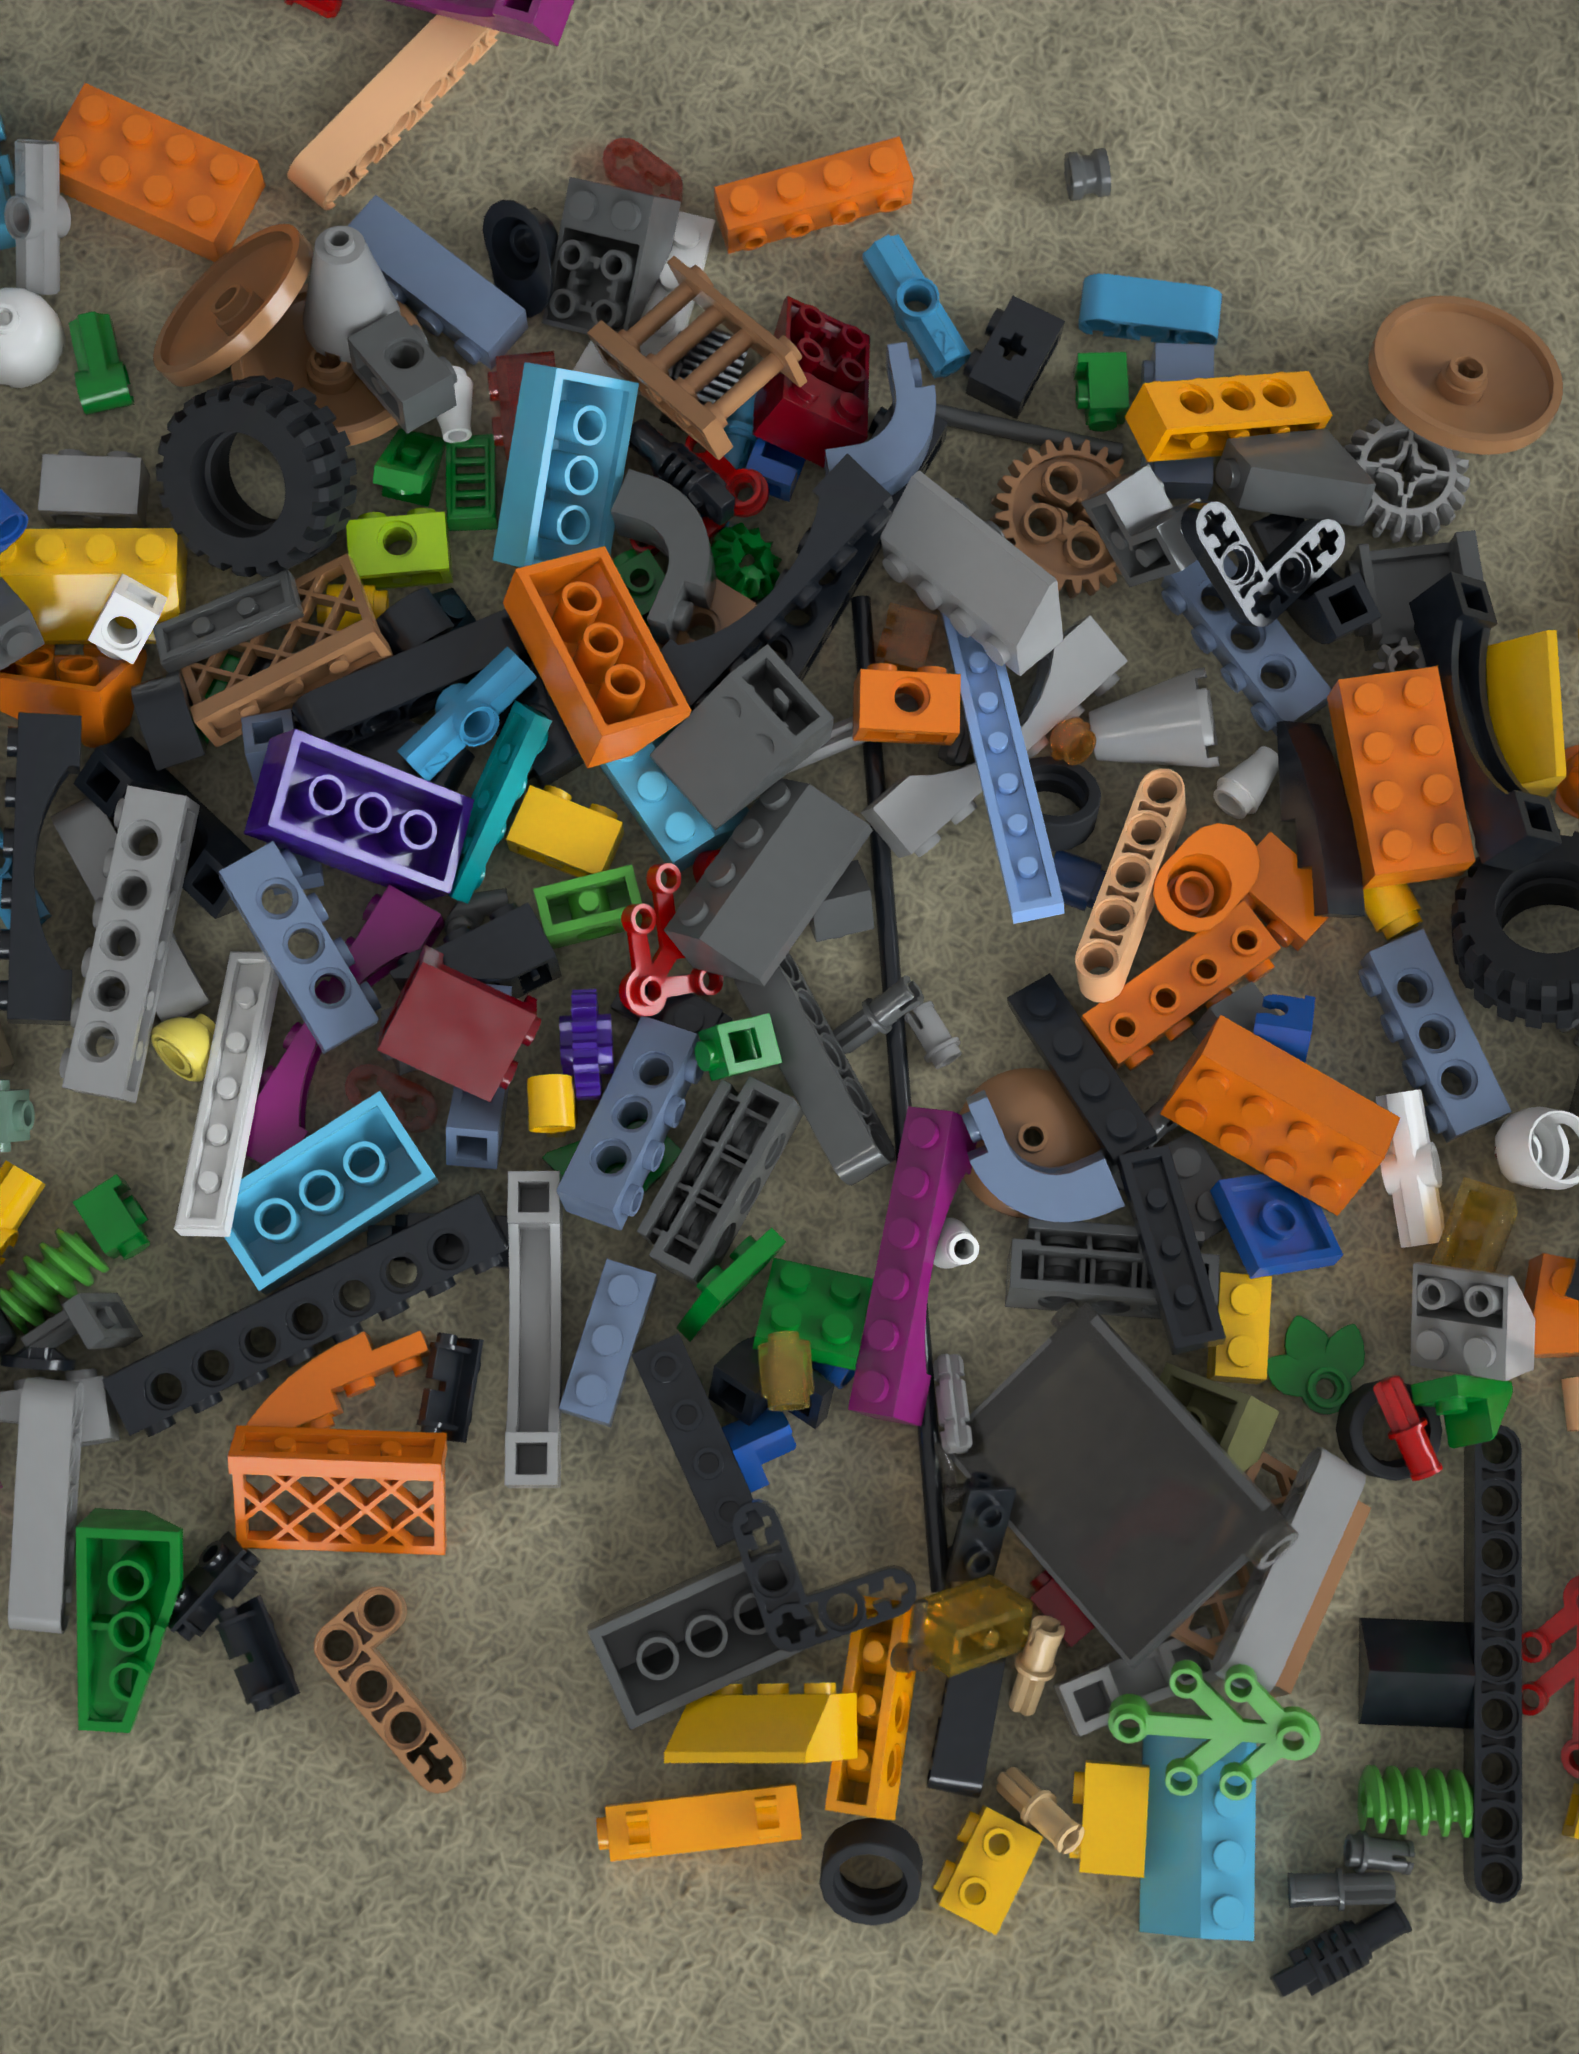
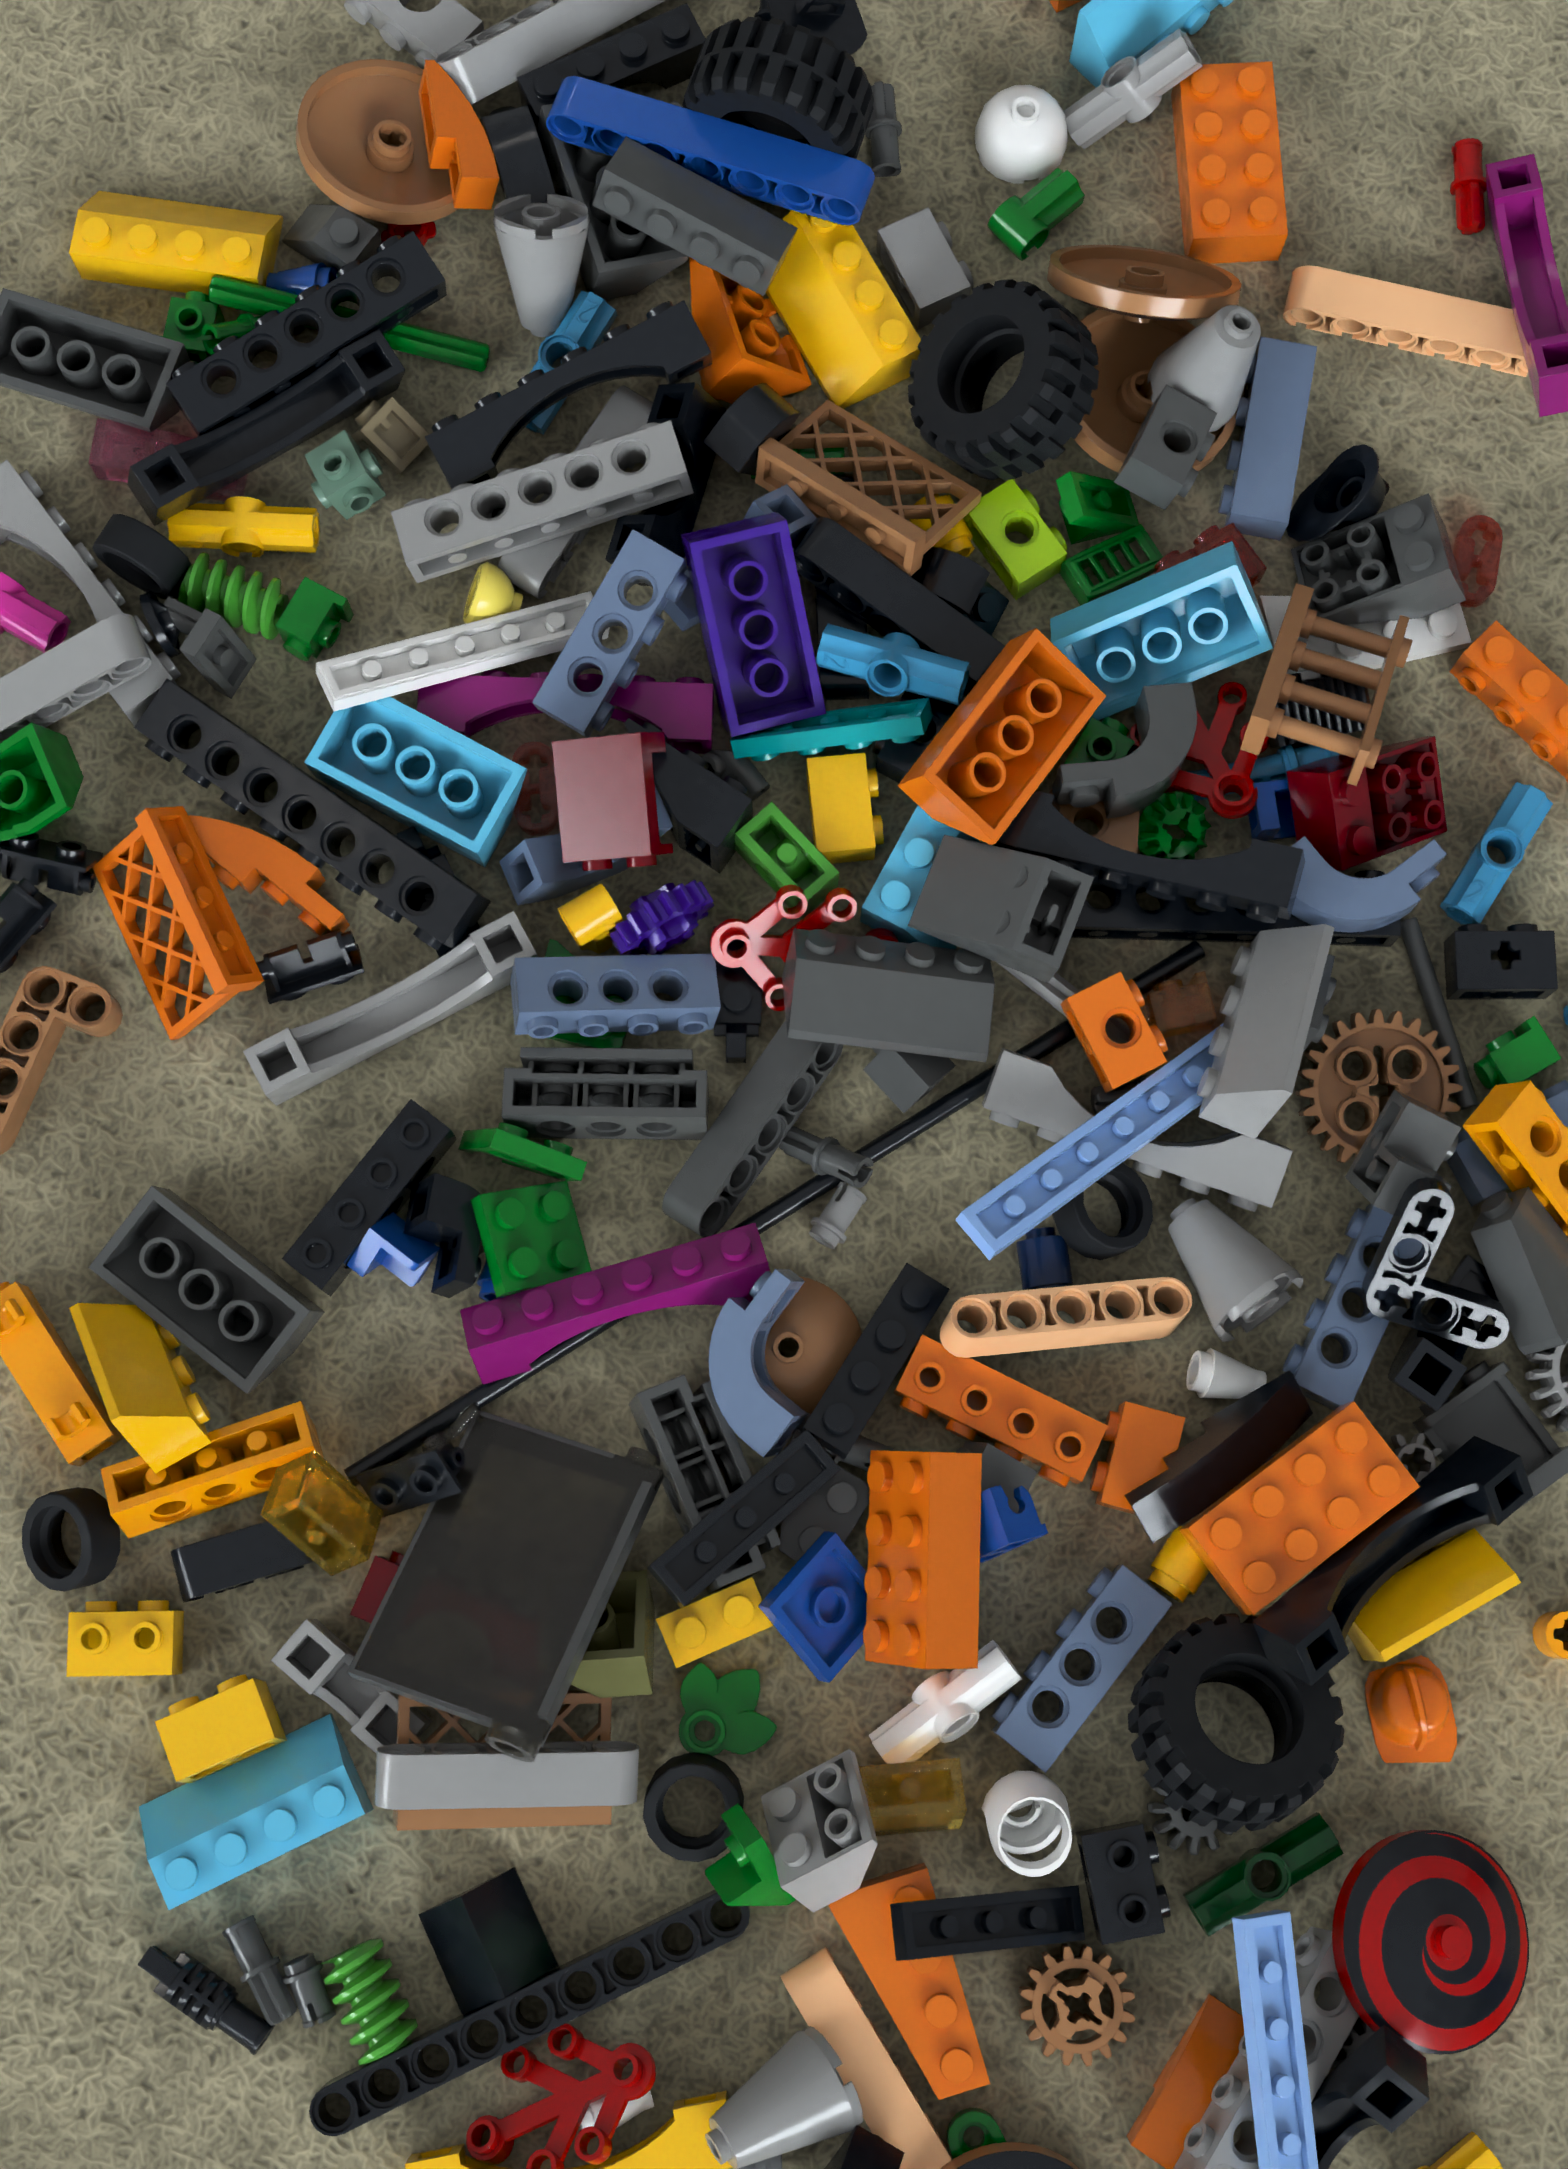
camera: 65 degrees right, 0 degrees up
(131, 601) = (838, 354): white brick -> none
(228, 621) = (868, 430): dark grey tile -> none
(457, 421) = (1179, 514): white cone -> none
(608, 1342) = (389, 1080): sand blue arch -> none
(684, 471) = (1217, 730): black hinge -> none
(738, 1047) = (737, 1060): green brick -> none
(786, 1371) = (457, 1234): clear yellow brick -> none
(794, 1596) = (266, 1345): black beam -> none
(913, 1654) = (267, 1464): clear smoke hand -> none
(952, 1403) = (516, 1401): light grey axle -> none
(966, 1249) = (667, 1320): white cone -> none
(1036, 1664) = (321, 1591): tan axle -> none
(1040, 1810) = (195, 1660): tan axle -> none
(1072, 741) = (1168, 1196): clear orange plate -> none
(1206, 877) = (1107, 1380): orange piece -> none
(1221, 1728) = (333, 1779): bright green plant -> none
(1407, 1428) = (697, 1820): red axle -> none

